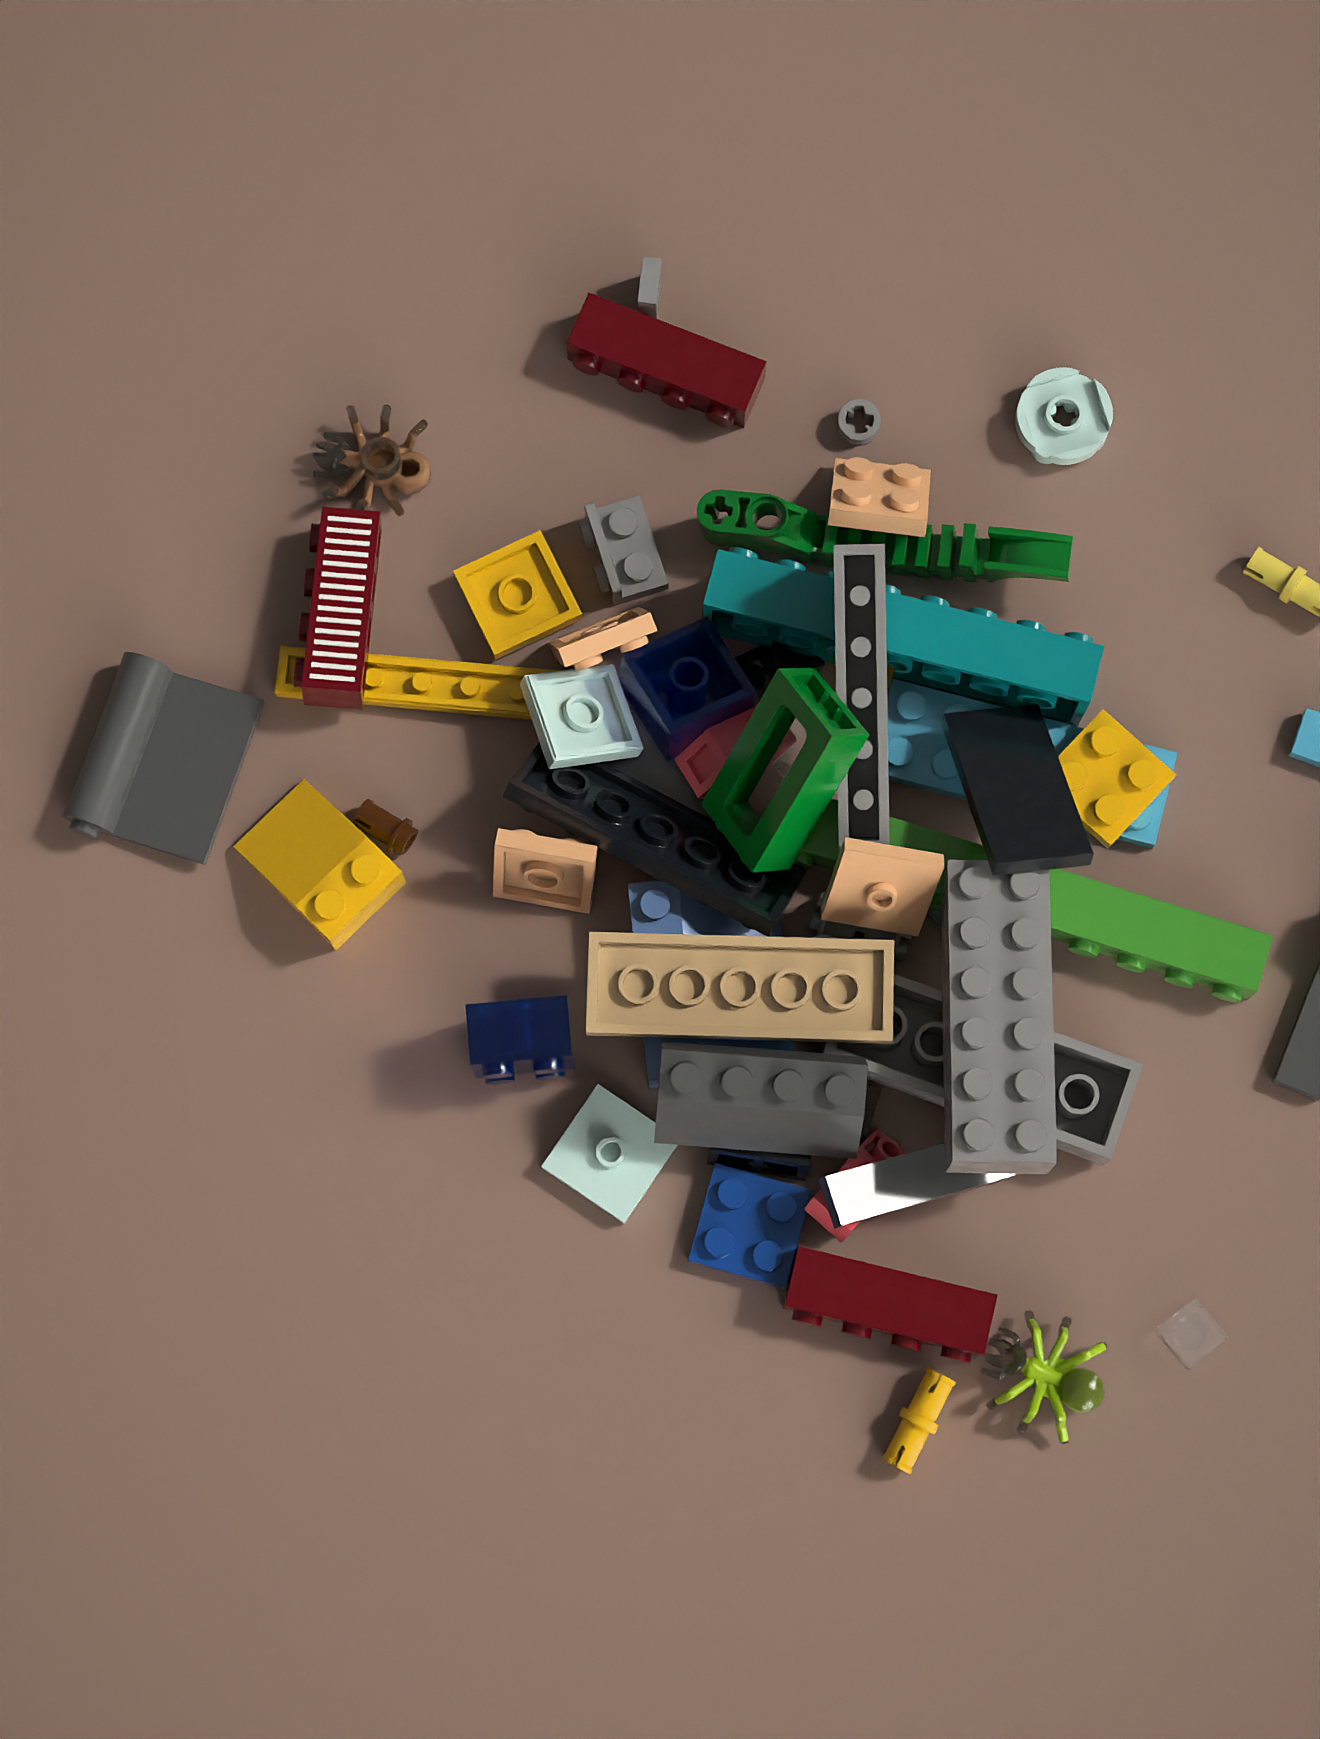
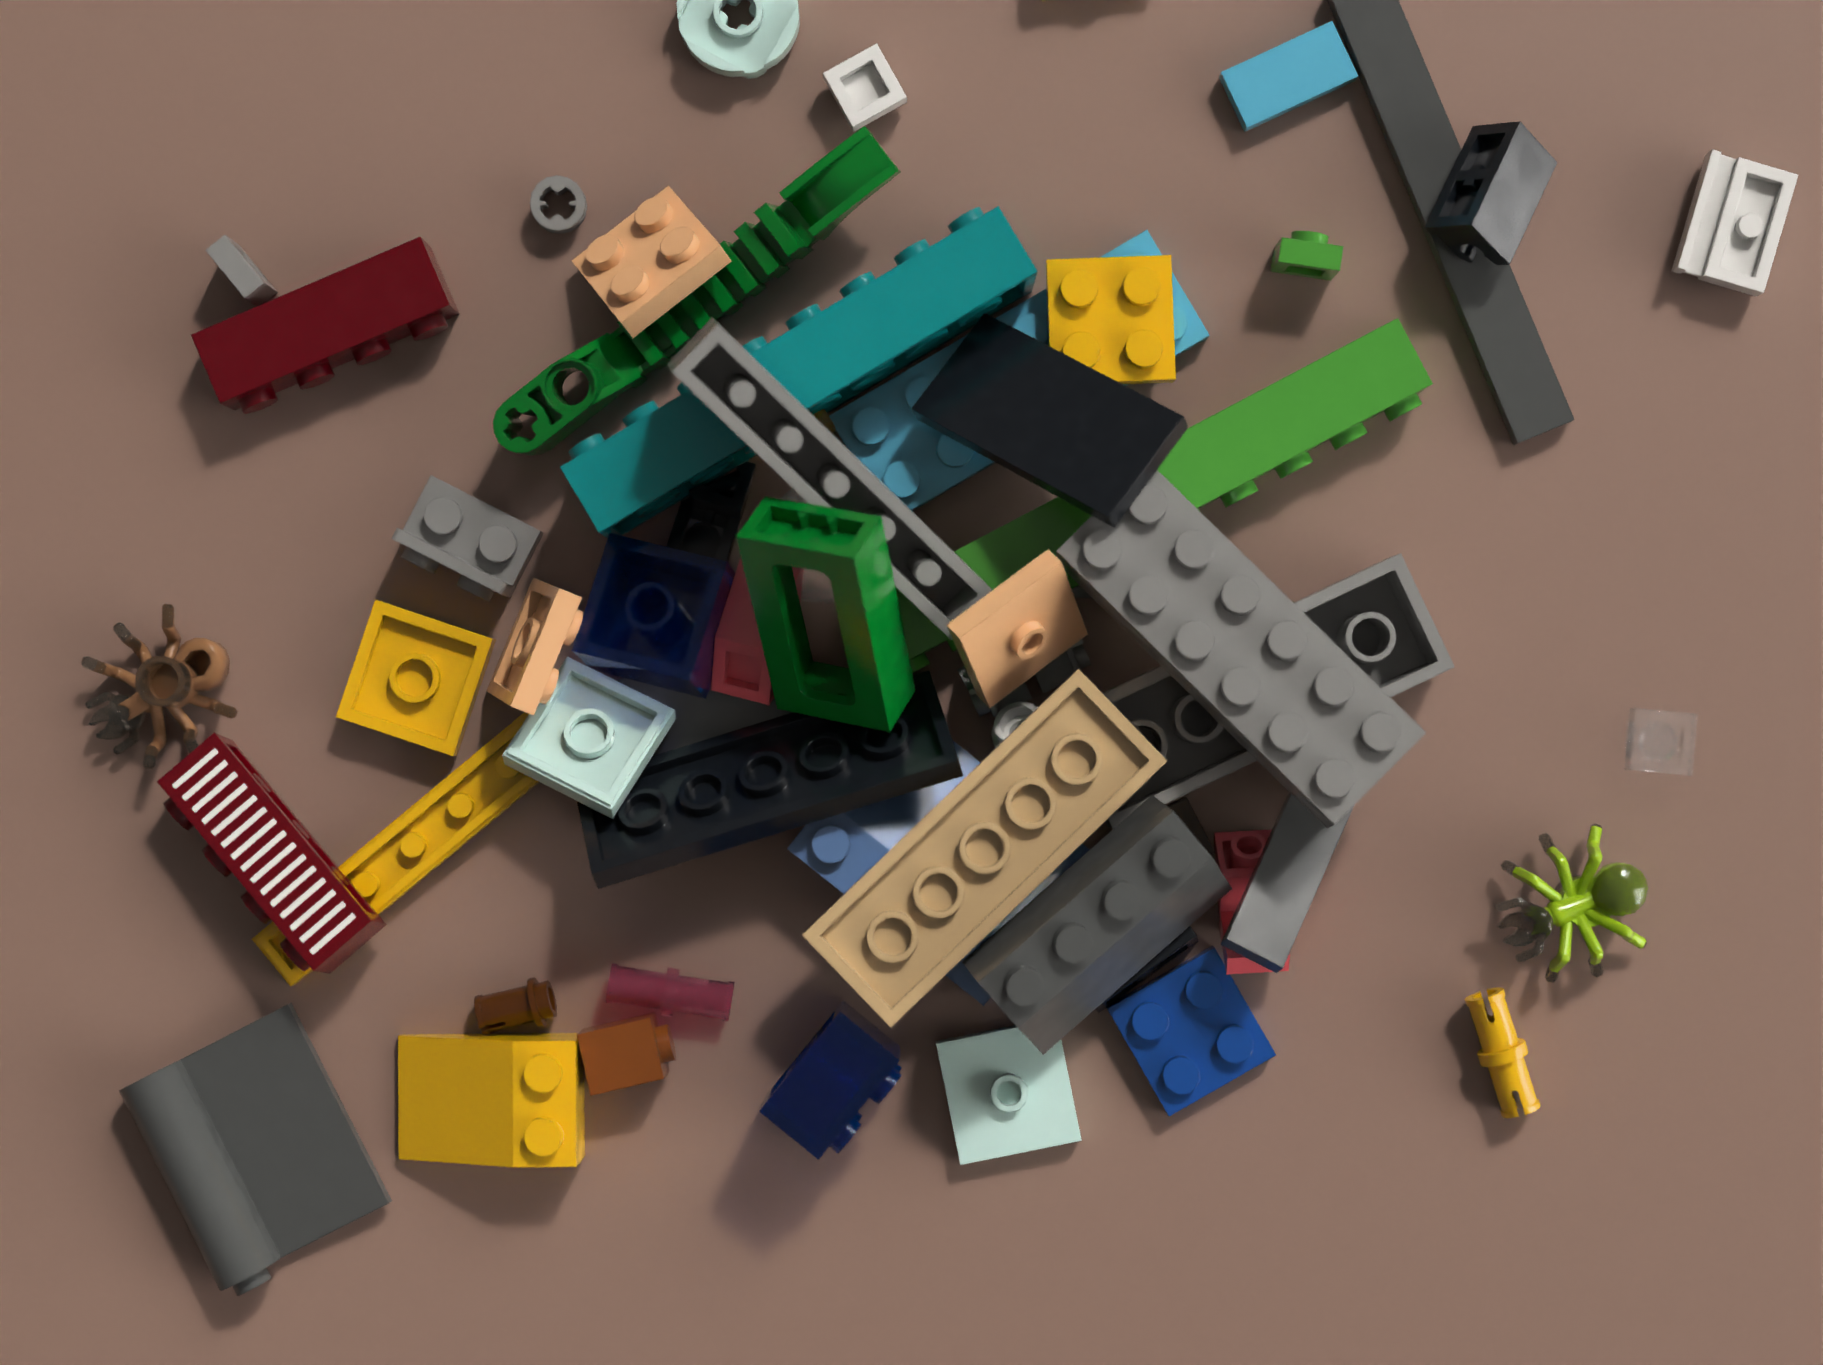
camera: 45 degrees left, 10 degrees up
(420, 912) = (626, 1053): none -> dark orange brick
(478, 904) = (669, 992): none -> clear pink pin
(544, 870) = (699, 909): light nougat plate -> none
(890, 1303) = (1381, 978): dark red brick -> none
(1095, 522) = (865, 87): none -> white plate
(1254, 855) = (1307, 256): none -> bright green plate

